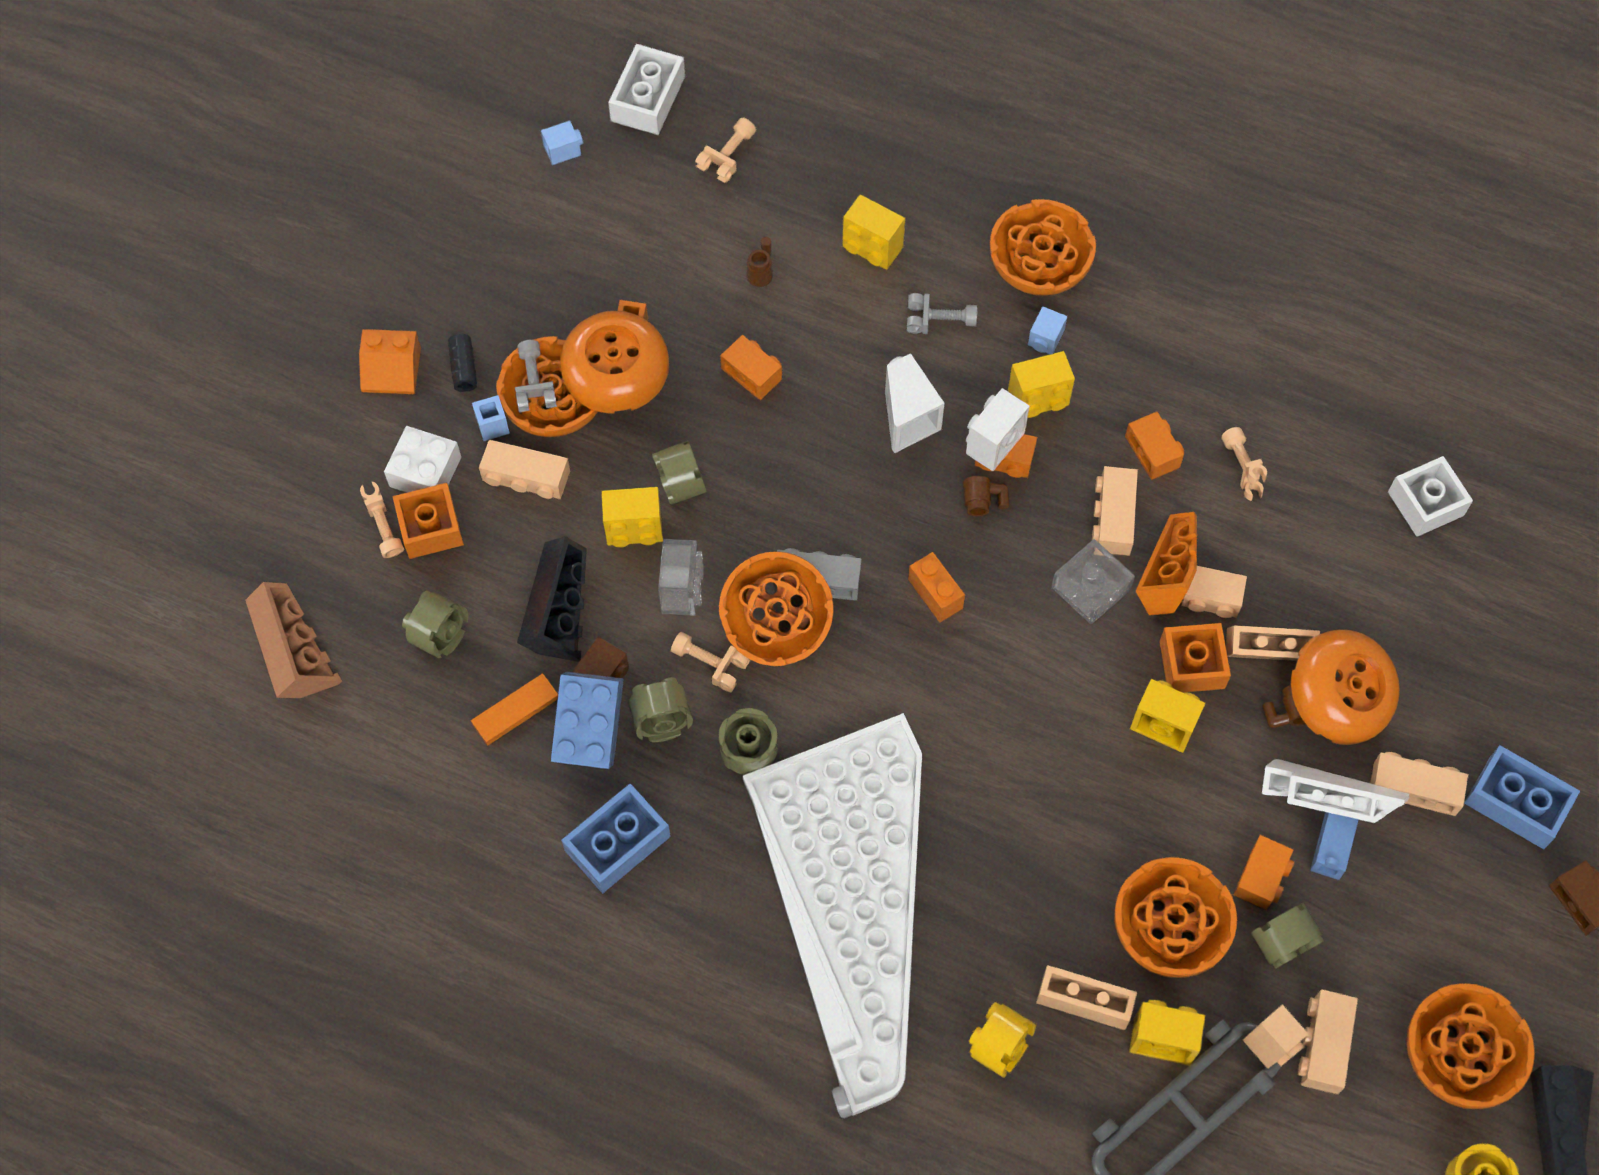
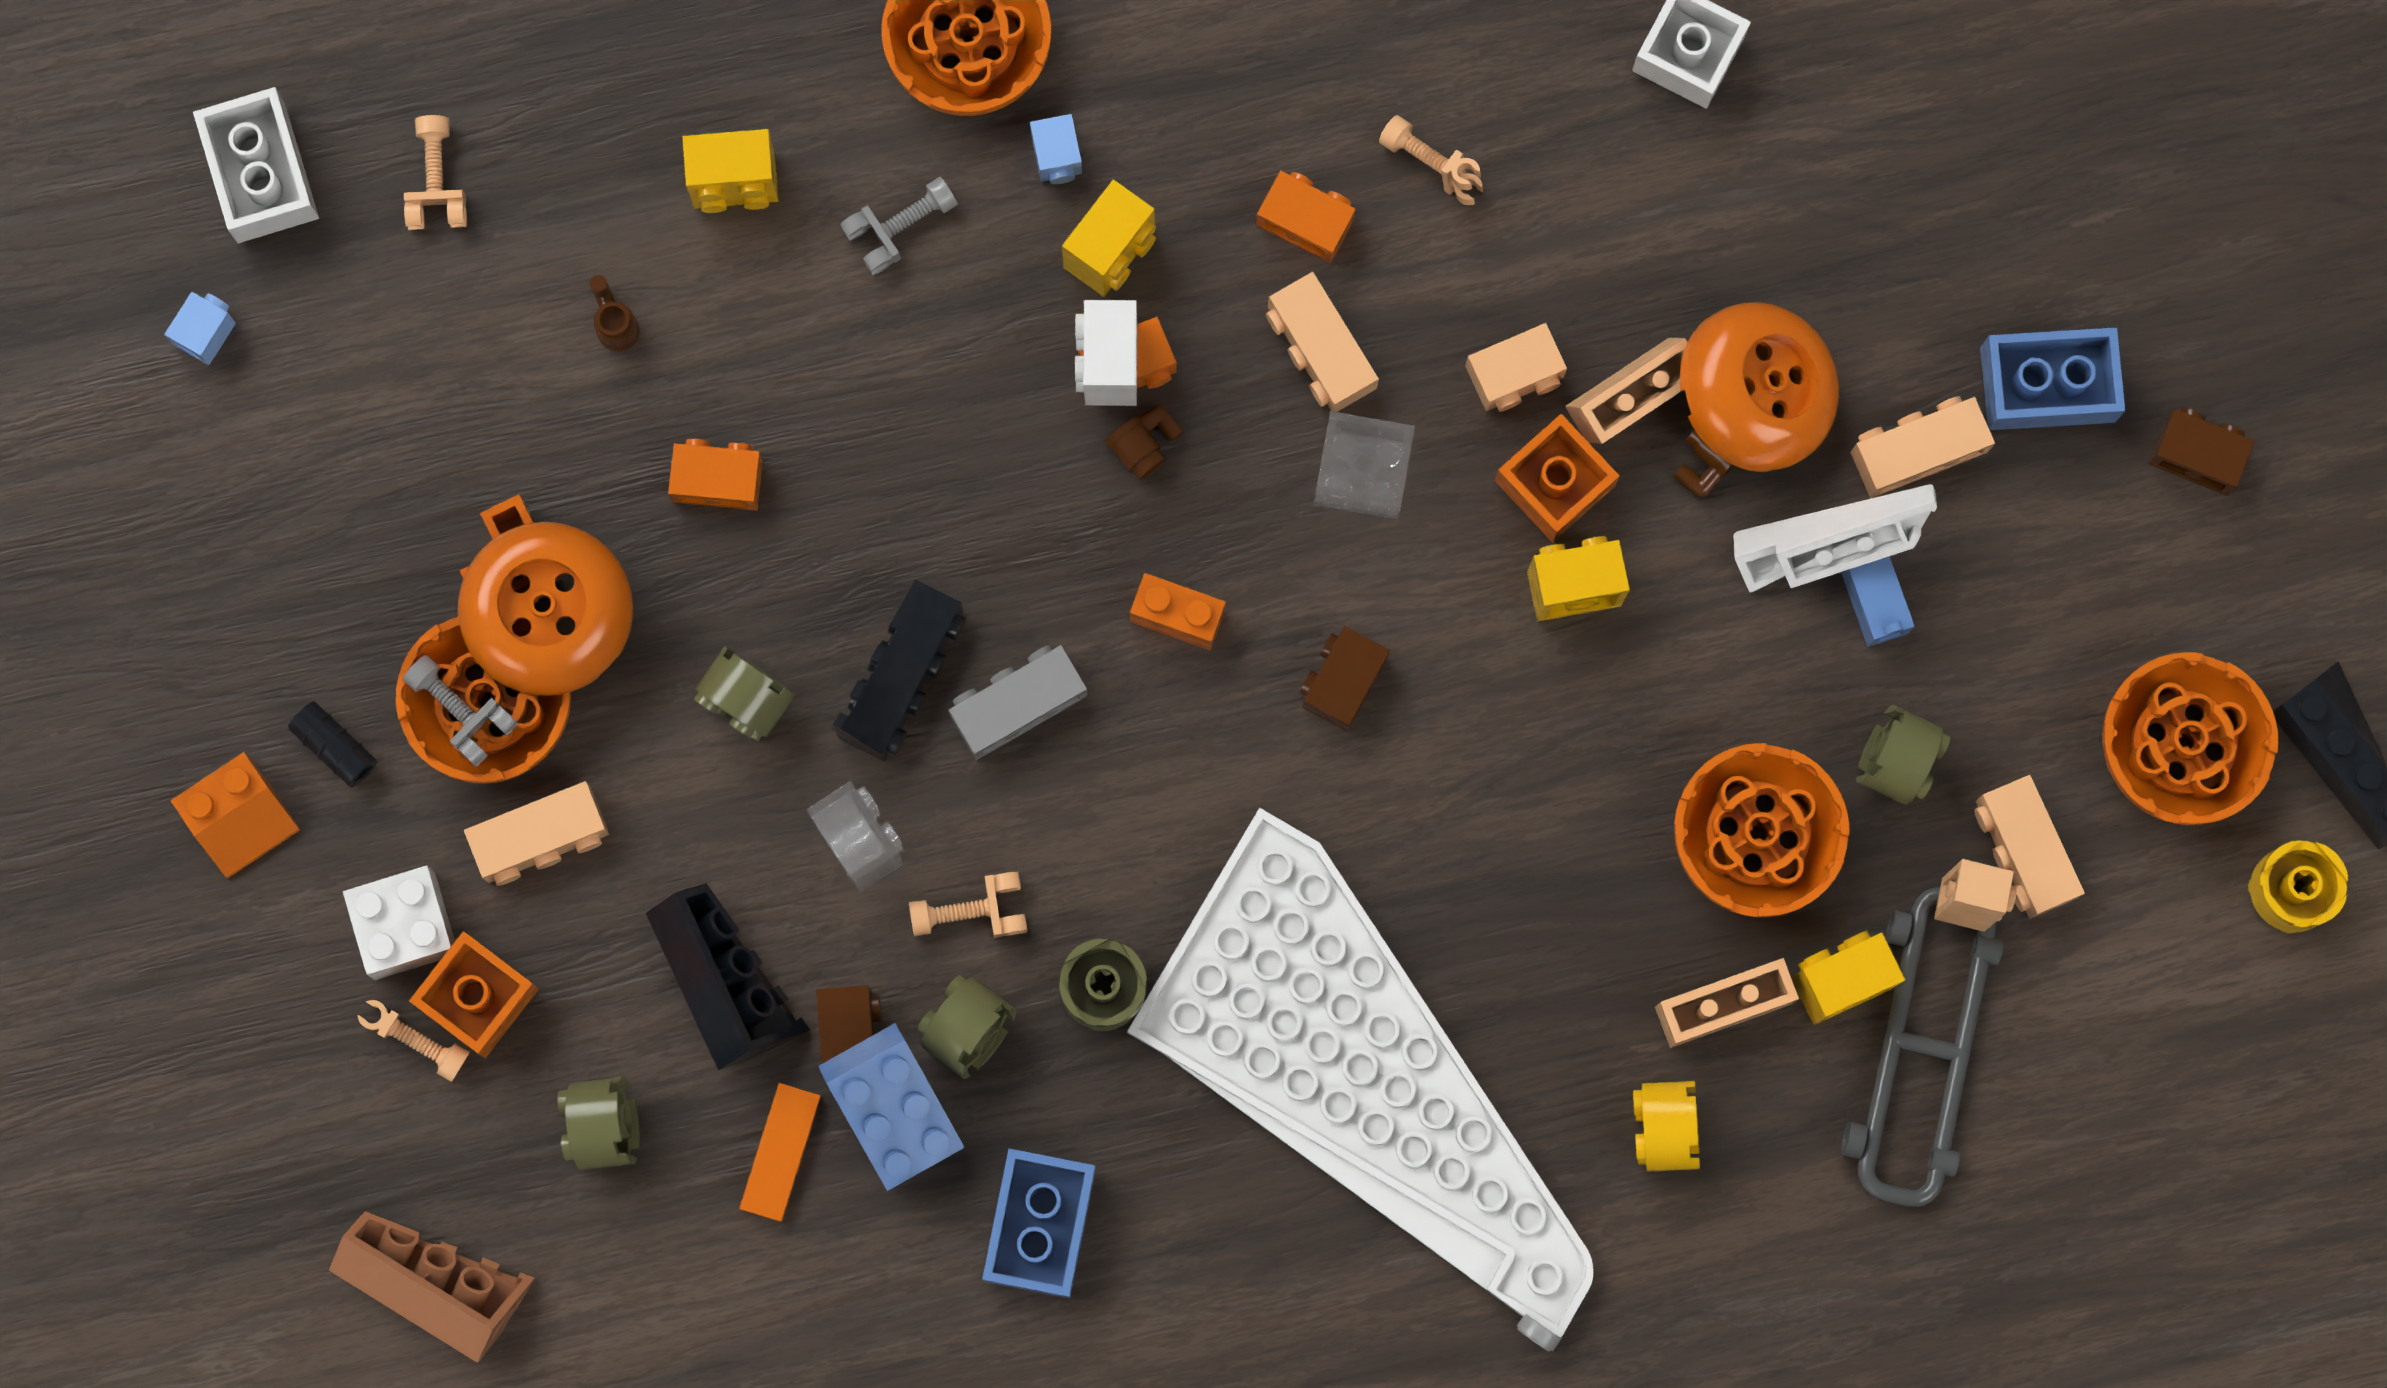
camera: 40 degrees left, 15 degrees up
(490, 418) = (438, 797): light blue brick -> none
(632, 516) = (733, 800): yellow brick -> none
(762, 638) = (1015, 839): orange brick -> none
(766, 517) = (900, 671): none -> black wedge
(911, 403) = (961, 384): white slope -> none
(1000, 681) = (1344, 678): none -> reddish brown brick
(1170, 566) = (1445, 371): orange wedge -> none
(1264, 872) = (1821, 693): orange brick -> none

